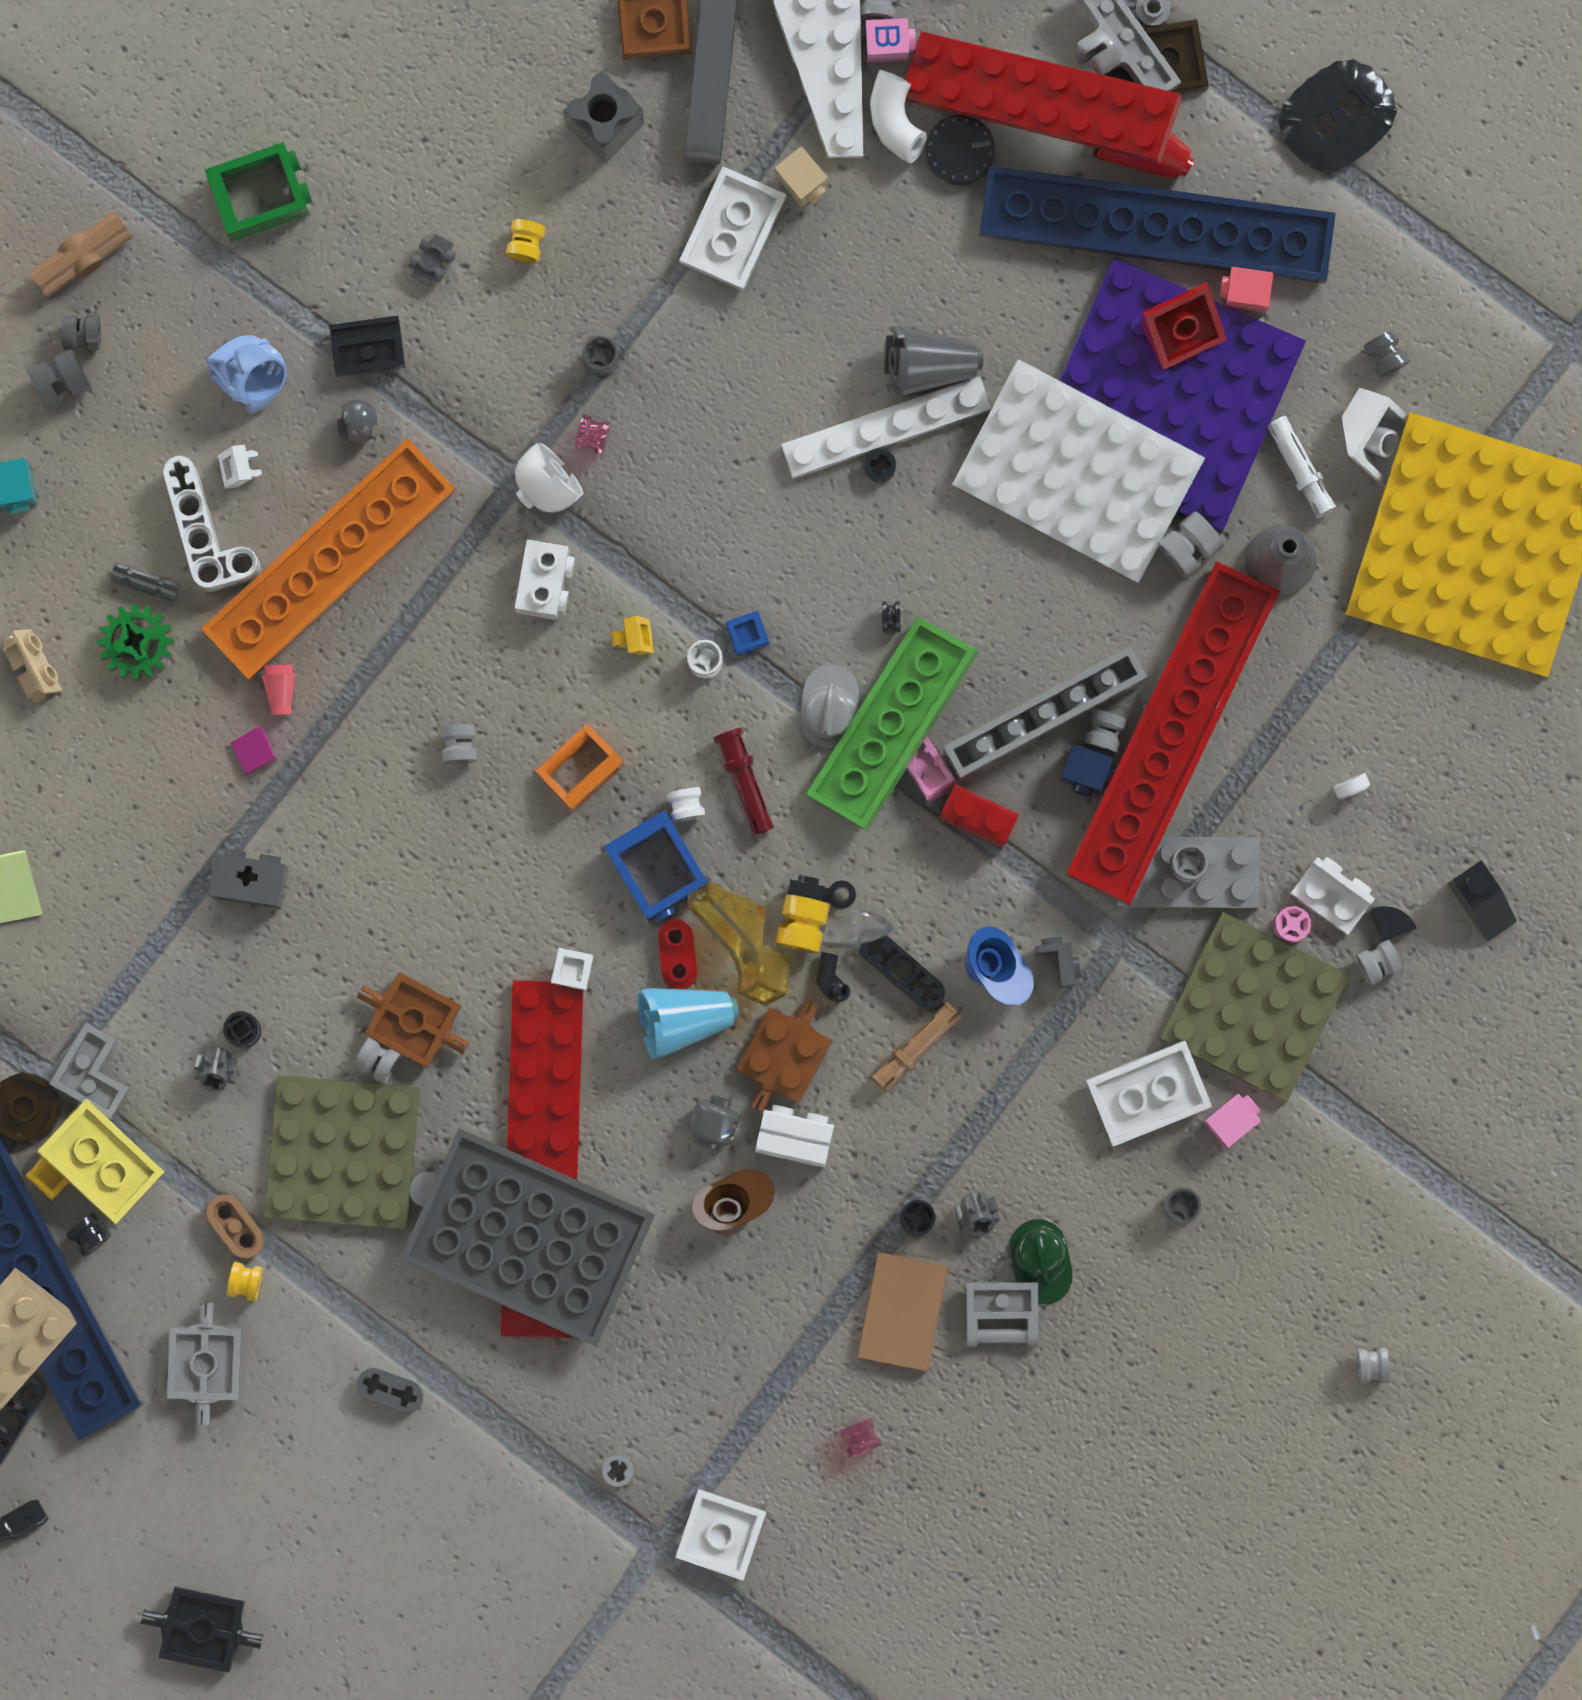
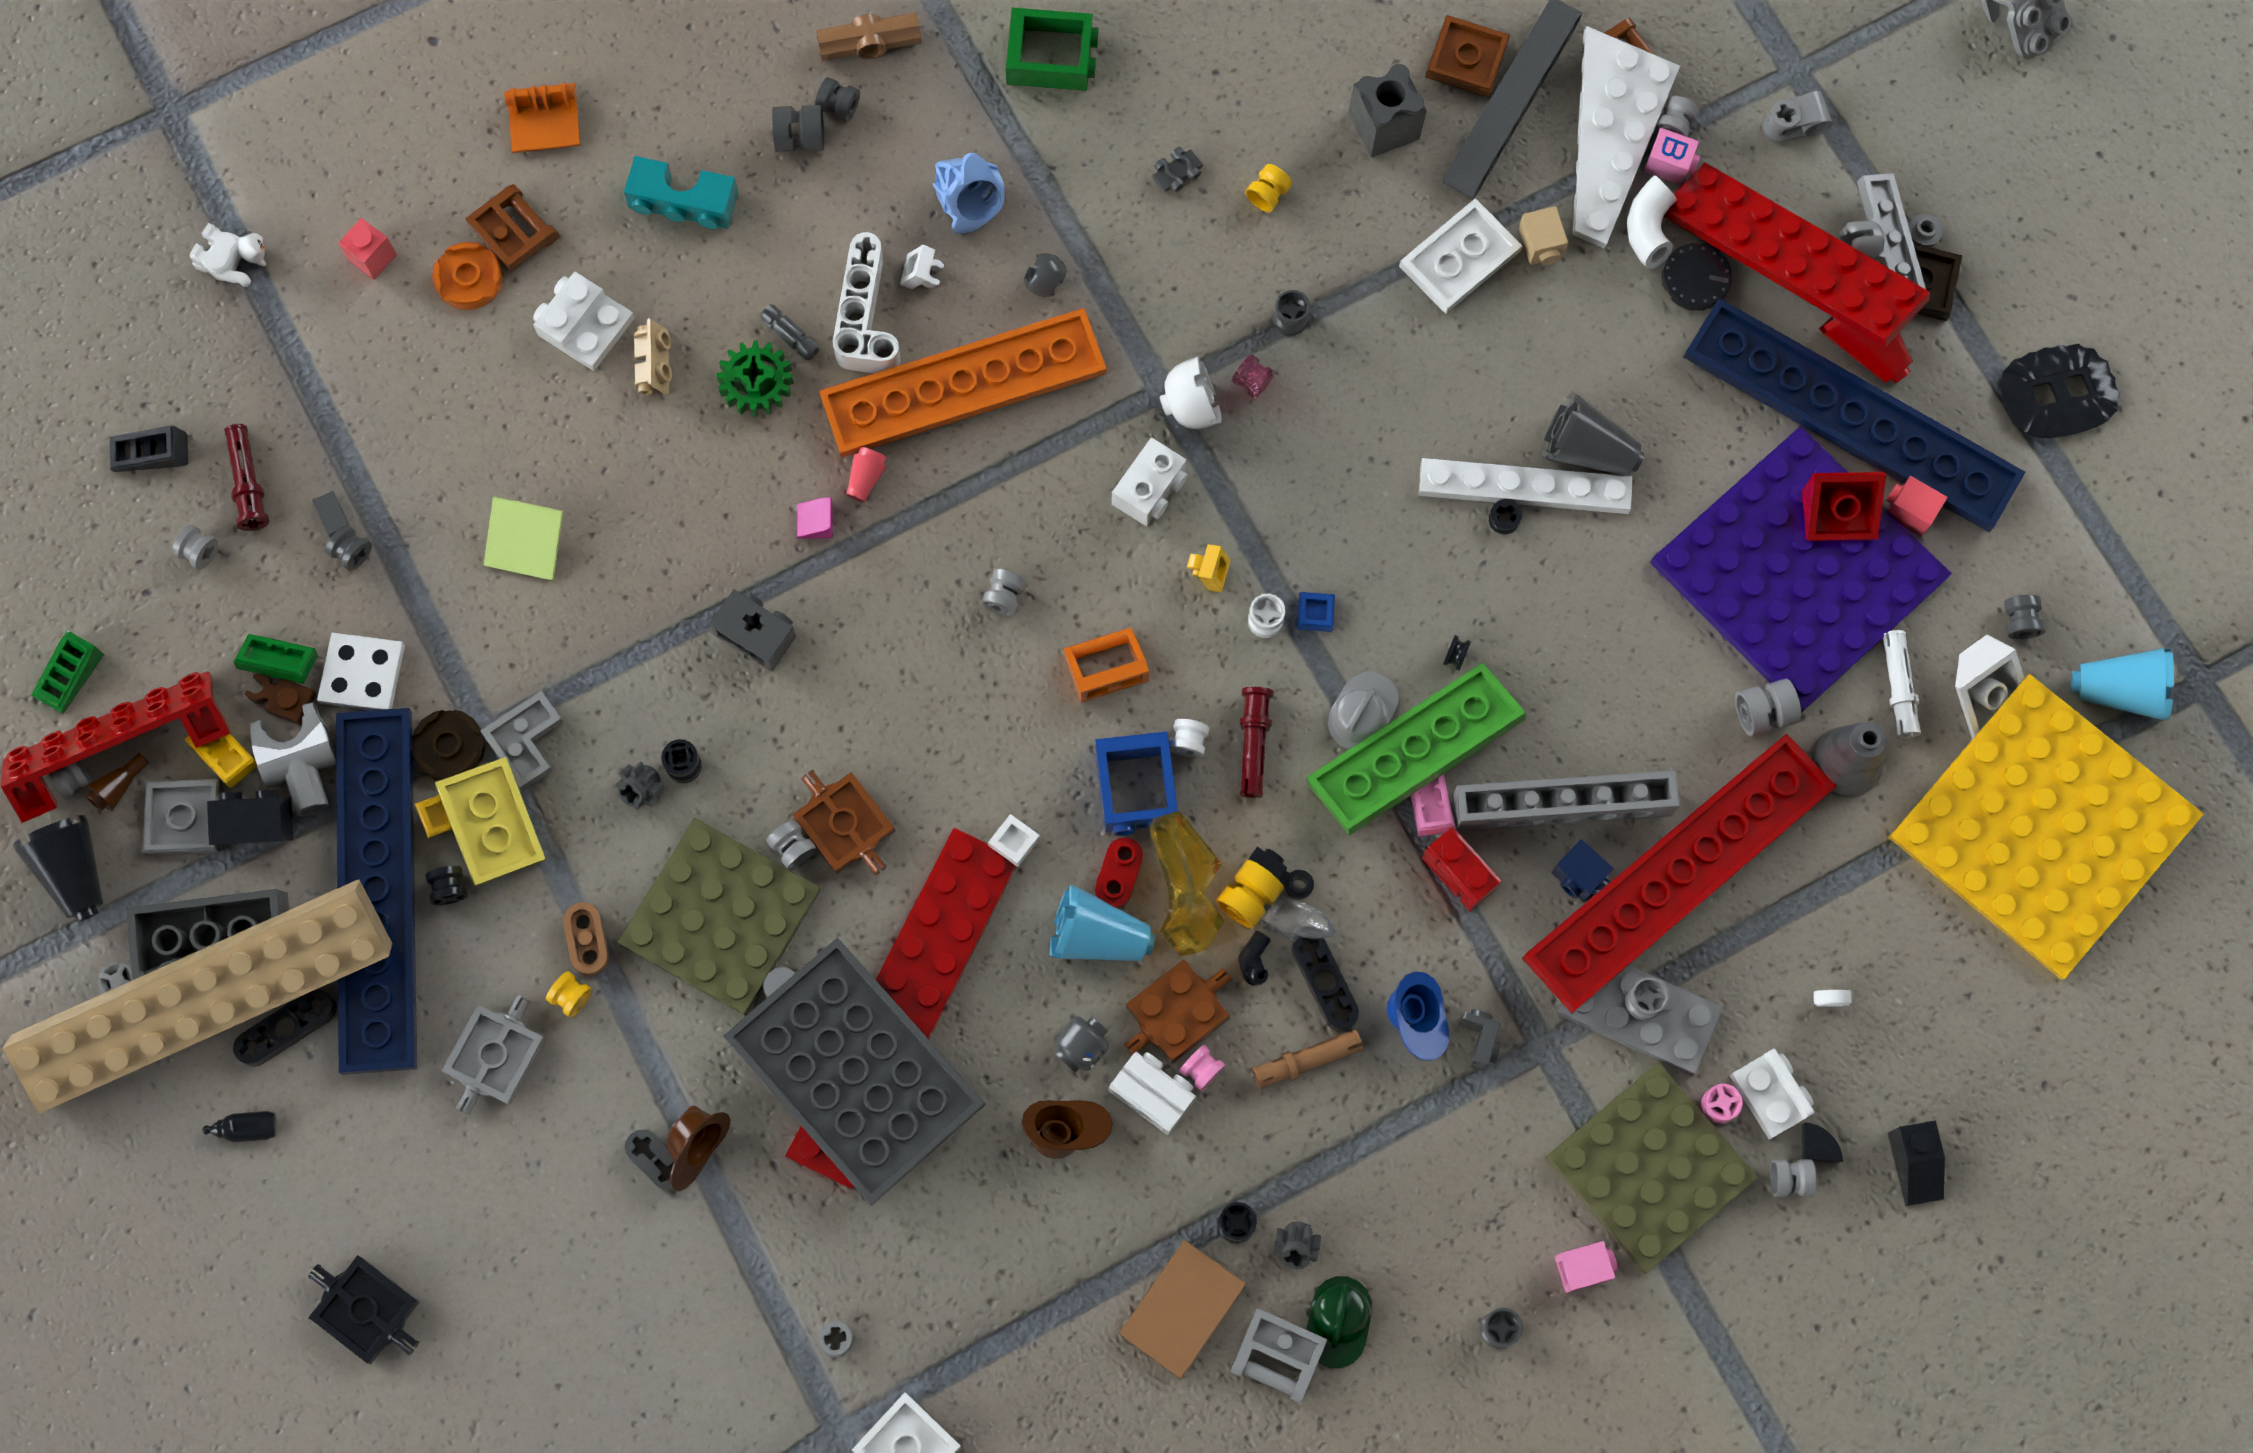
camera: 20 degrees right, 10 degrees down
(367, 346) = (1085, 217): black plate -> none
(414, 1360) = (693, 1142): none -> reddish brown piece
(828, 1096) = (1202, 1068): none -> bright pink wheel
(860, 1437) = (1086, 1413): clear pink wheel -> none
(1078, 470) = (1690, 596): white plate -> none
(1104, 731) = (1615, 842): light grey wheel -> none
(1149, 1093) = (1515, 1203): white plate -> none
(1502, 378) = (2129, 683): none -> medium azure cone

